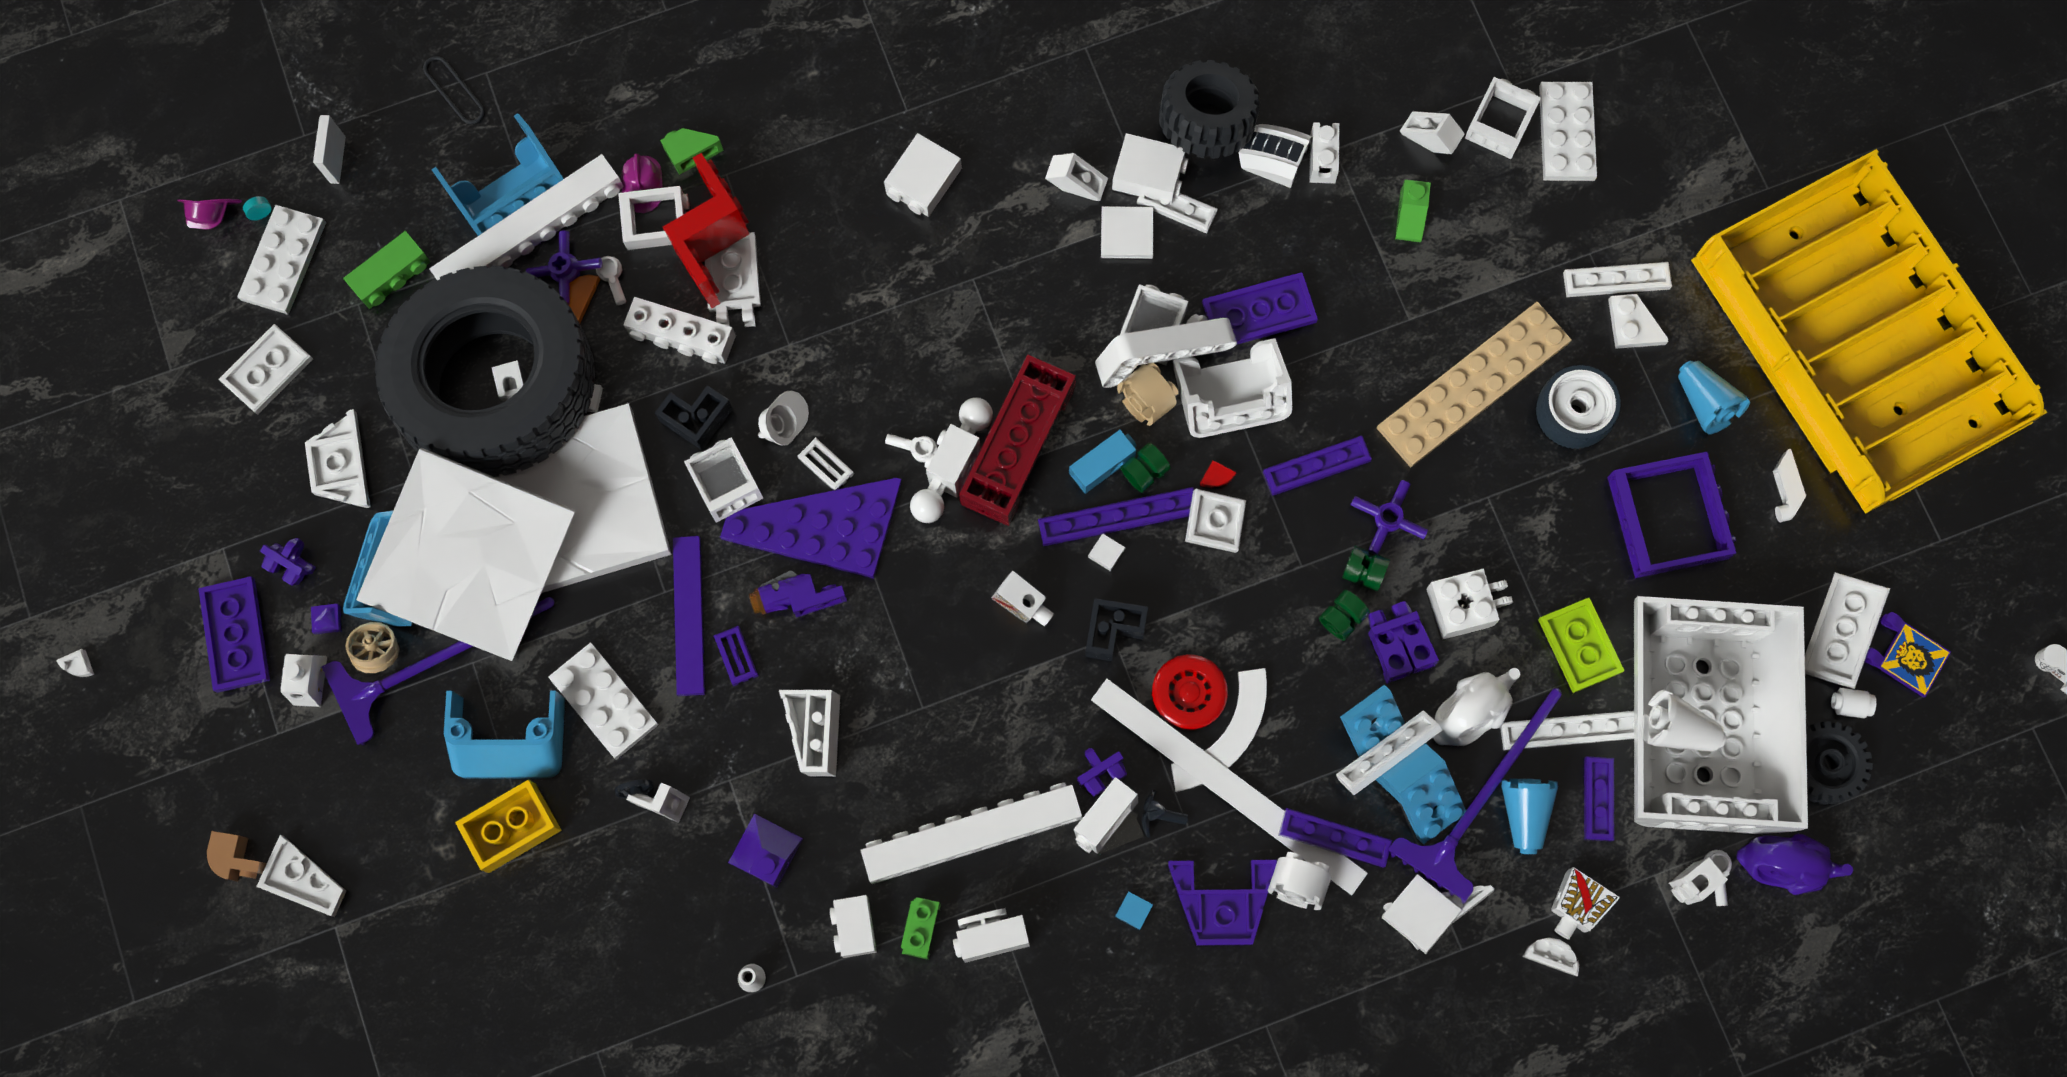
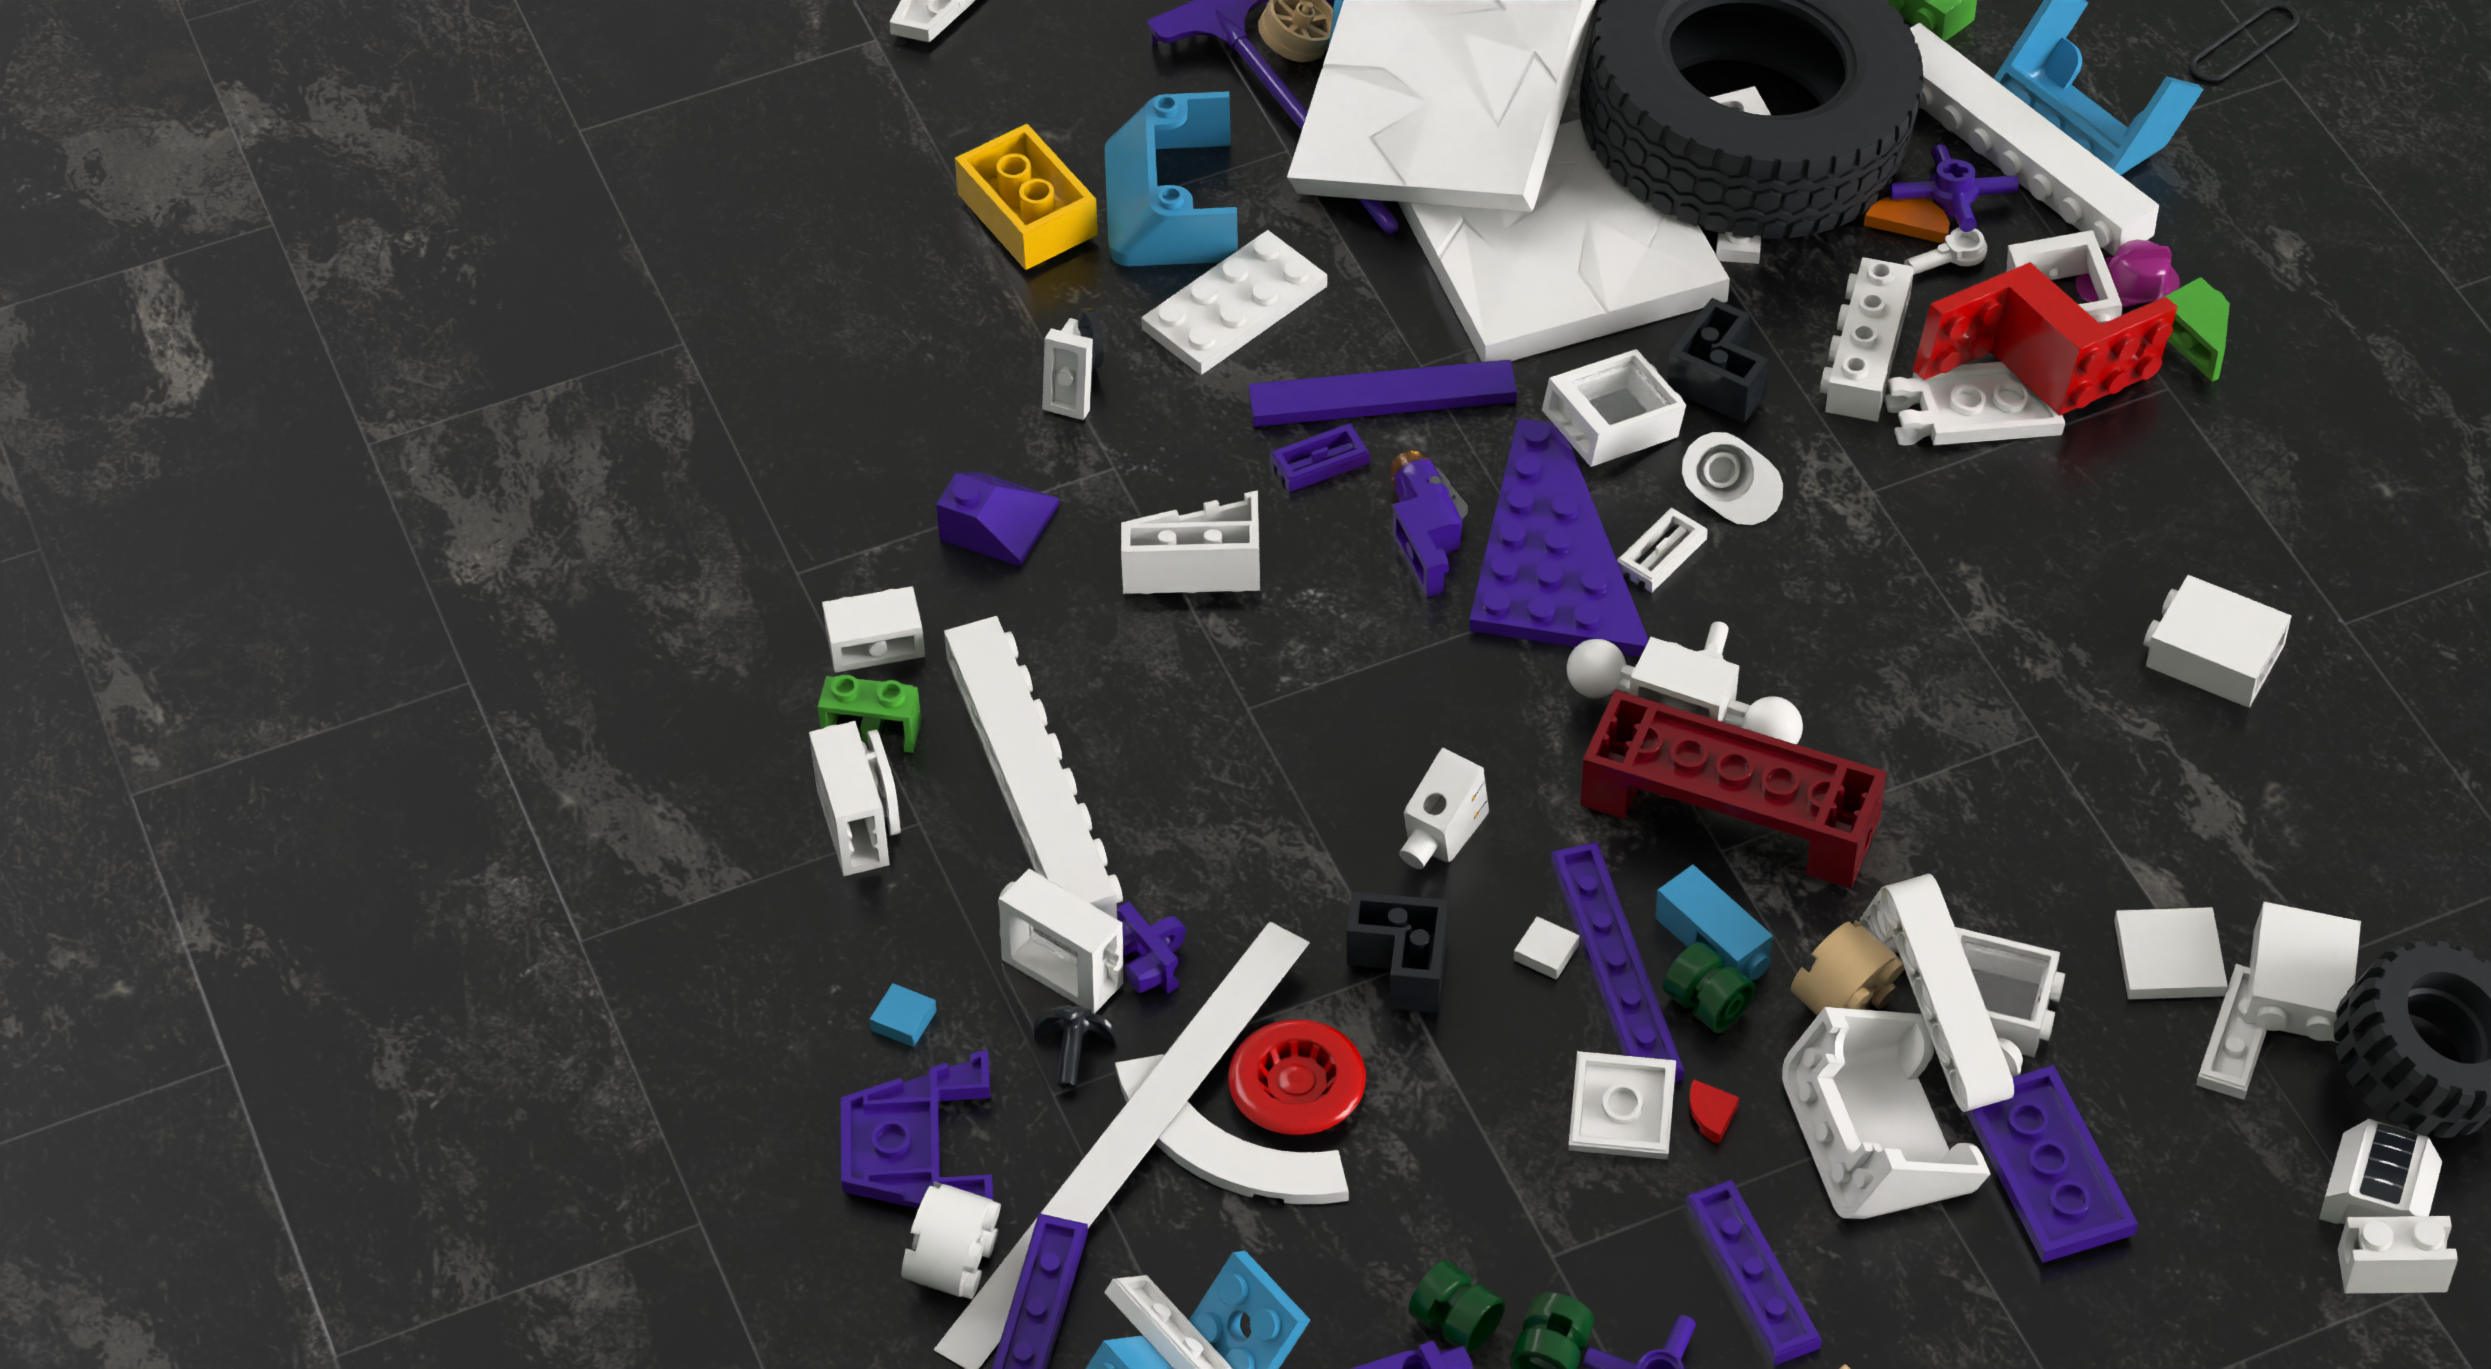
camera: 85 degrees right, 25 degrees down
(757, 981) = (792, 504): white cone -> none
(1076, 176) = (2260, 863): white slope -> none

